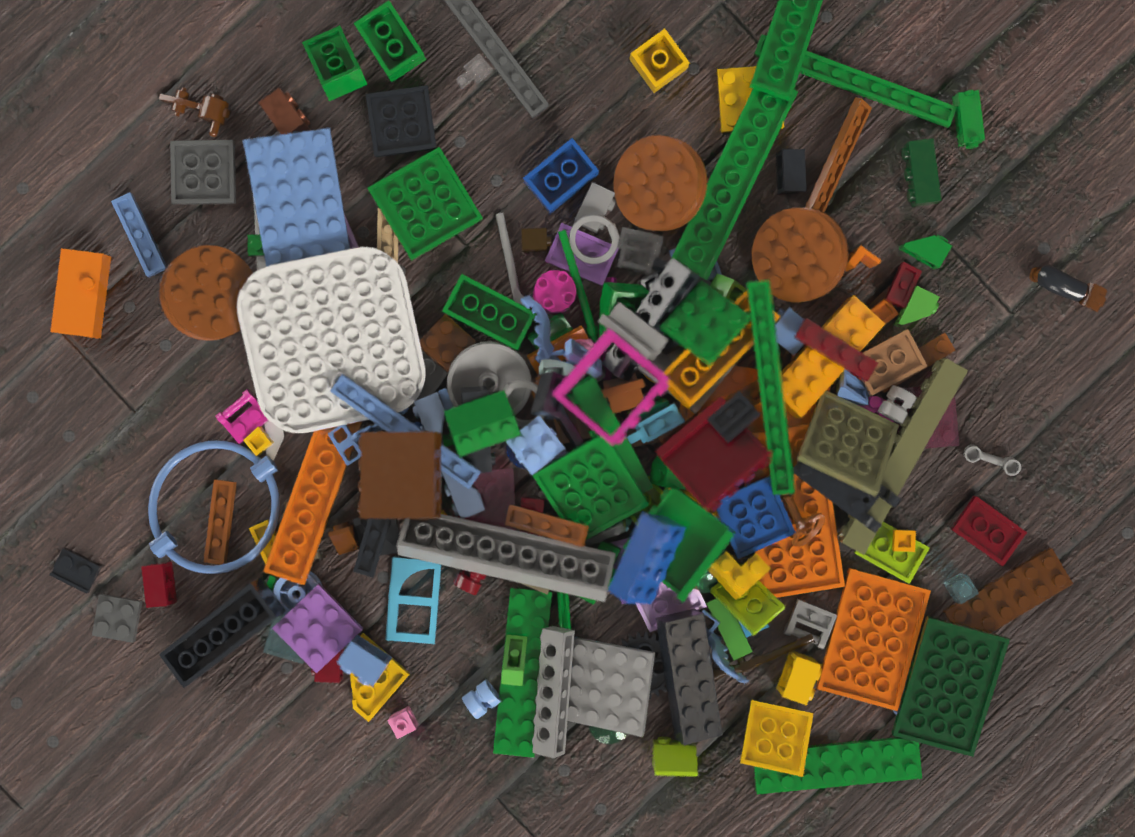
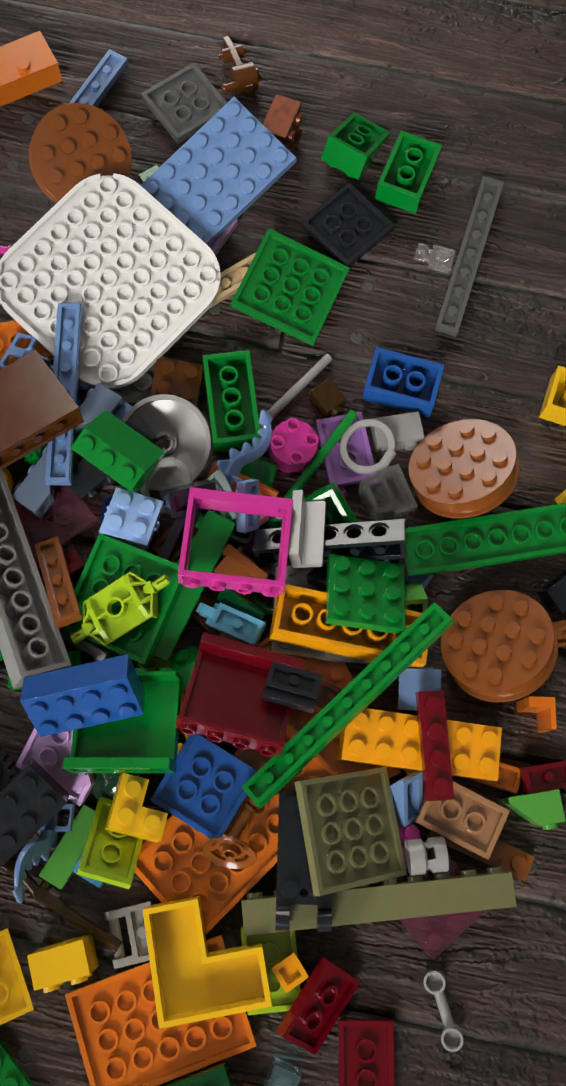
camera: 50 degrees right, 15 degrees down
(605, 481) = (138, 604): none -> lime plate
(869, 603) = (194, 982): none -> yellow piece
(935, 536) = (318, 1006): none -> dark red plate

